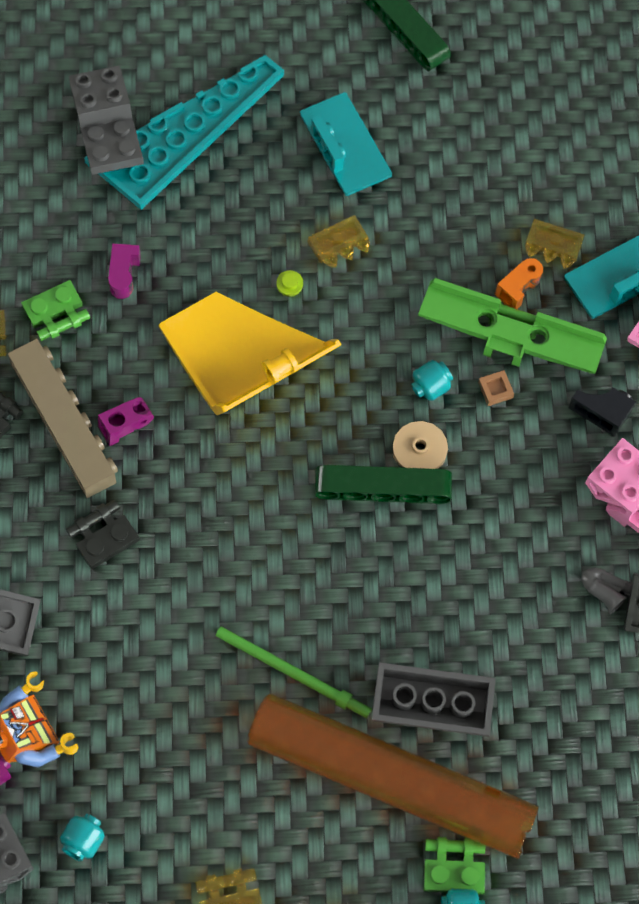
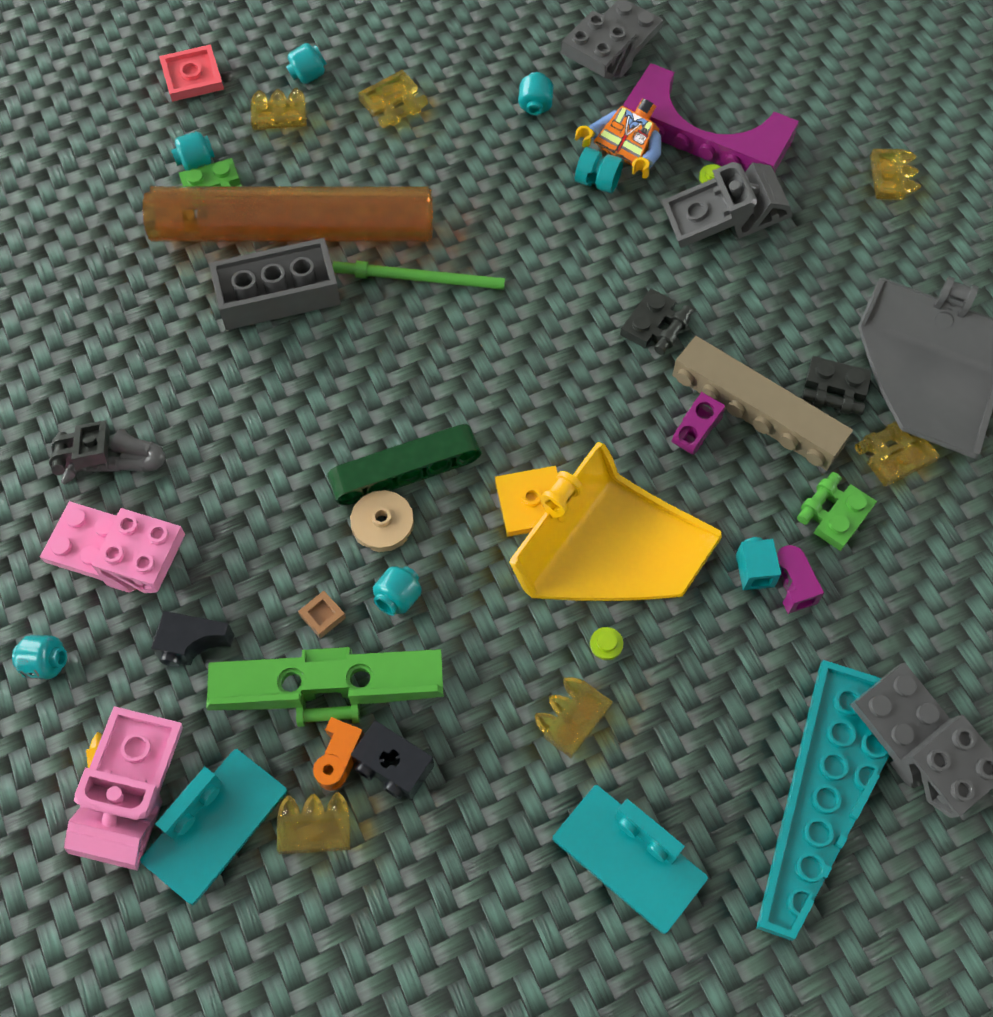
camera: 160 degrees right, 5 degrees down
(66, 707) = (599, 170): none -> teal wheel
(144, 291) = (758, 563): none -> teal brick
(292, 416) = (520, 498): none -> yellow plate
(482, 261) = (384, 744): none -> black brick

